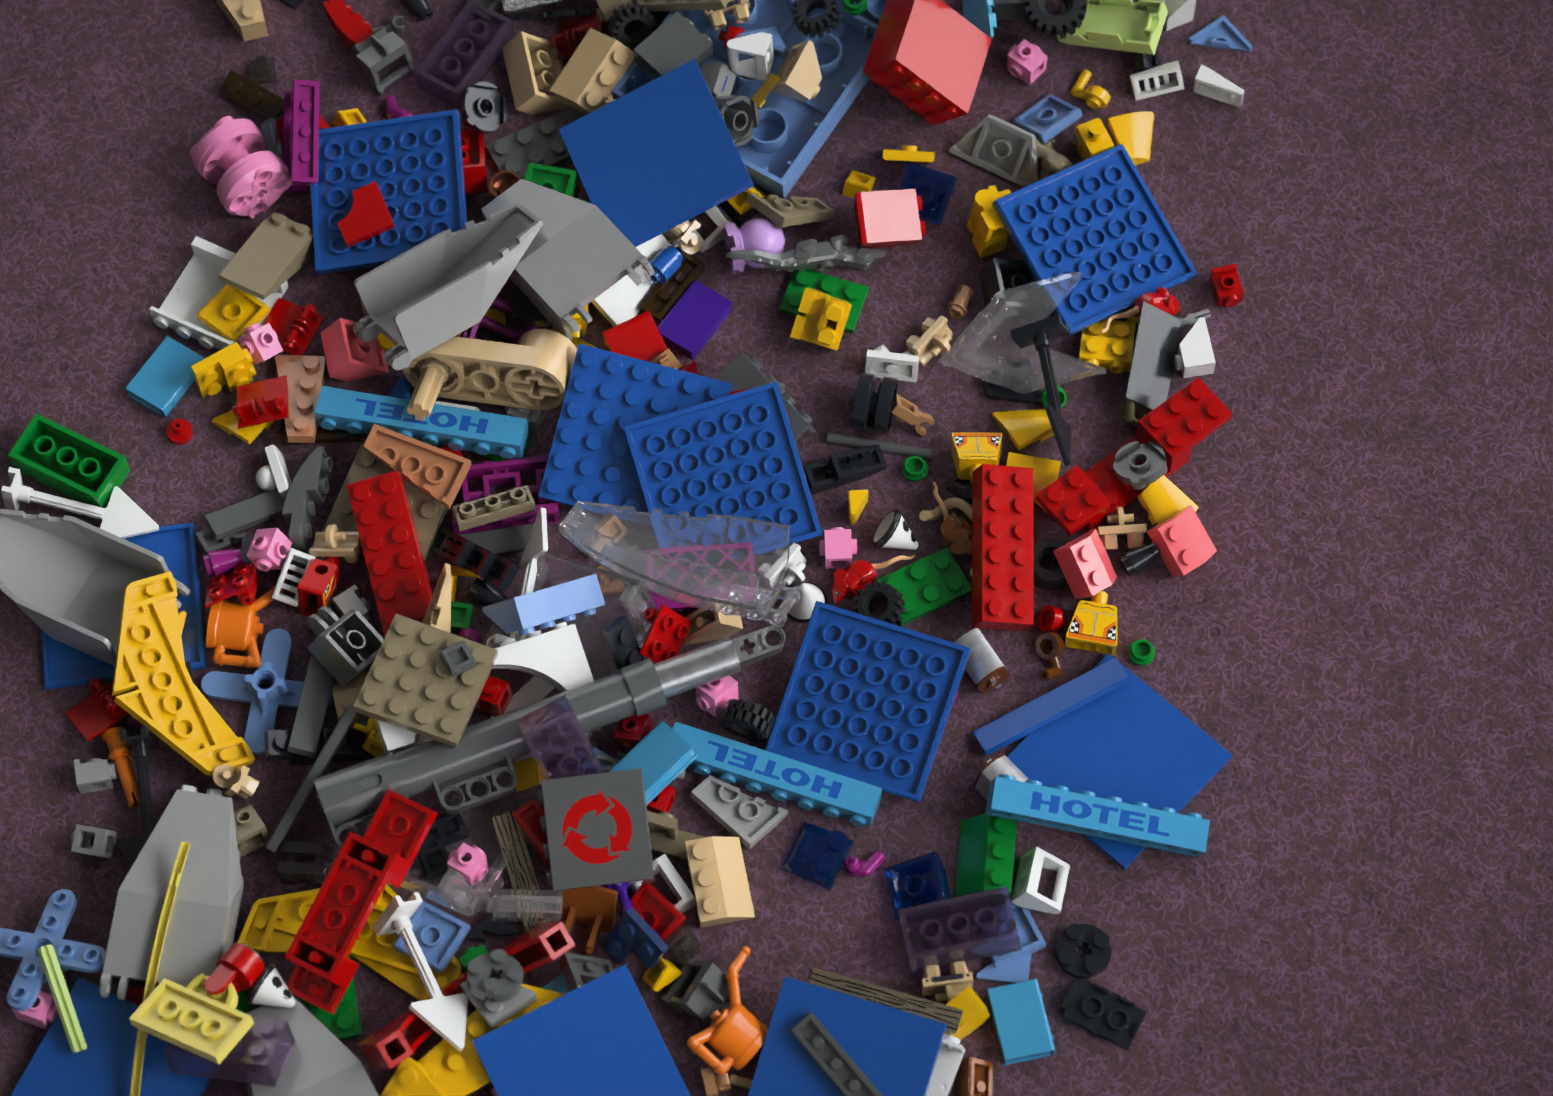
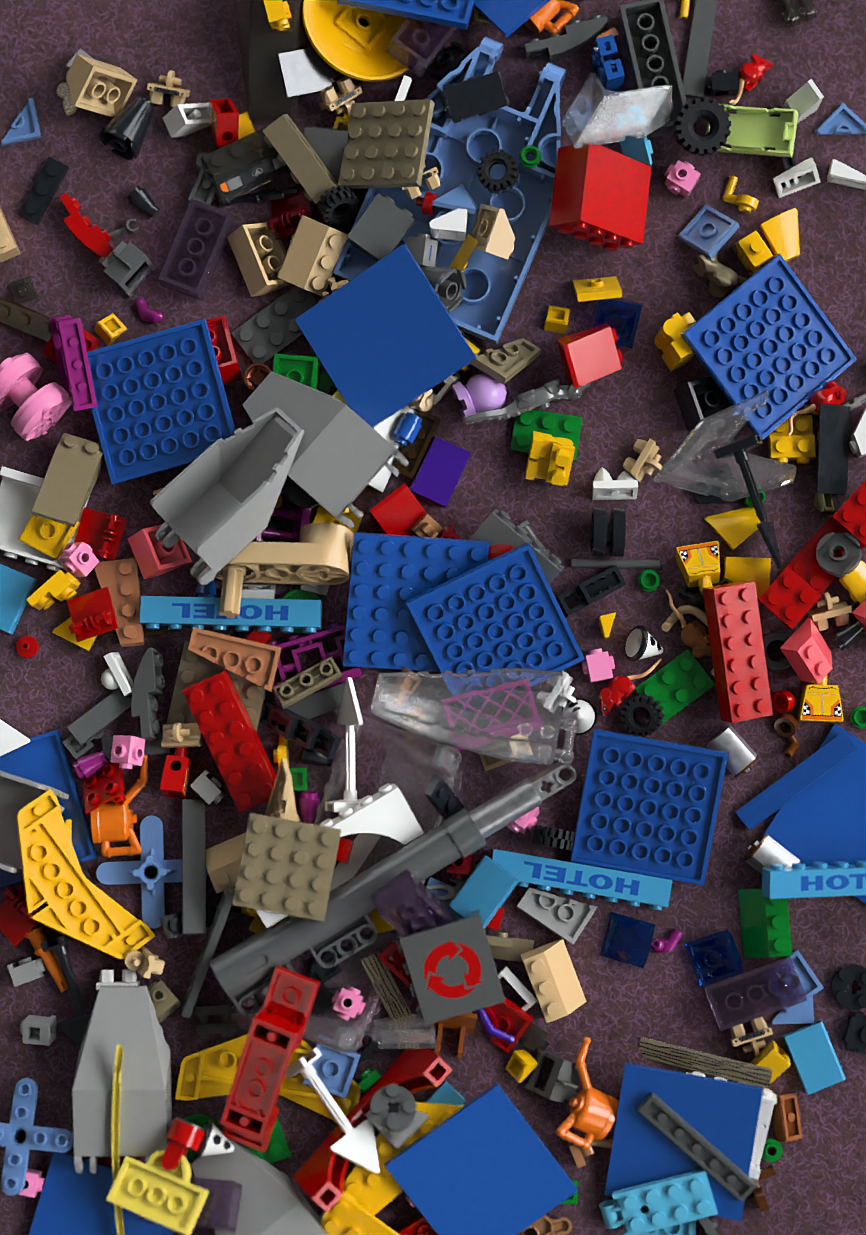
camera: 10 degrees left, 20 degrees up
(62, 998) = (45, 1178): yellowish green axle -> none
(271, 137) = (47, 363): clear light blue piece -> none
(301, 558) = (162, 752): white slope -> none
(344, 644) = (211, 829): dark grey hinge -> none
(367, 217) = (147, 430): red tile -> none
(458, 658) = (311, 848): dark grey tile -> none
(471, 112) = (211, 300): black plate -> none
(547, 605) = (370, 772): slope -> none
(583, 969) = (463, 1078): dark grey plate -> none
(635, 935) = (494, 1042): dark blue plate -> none
(665, 635) = (473, 771): red hinge -> none
(908, 412) = (638, 535): medium nougat plate -> none
(958, 306) = (661, 418): medium nougat pin -> none
(1001, 150) = (674, 270): light grey wing -> none
(1028, 877) = (803, 936): white tile -> none

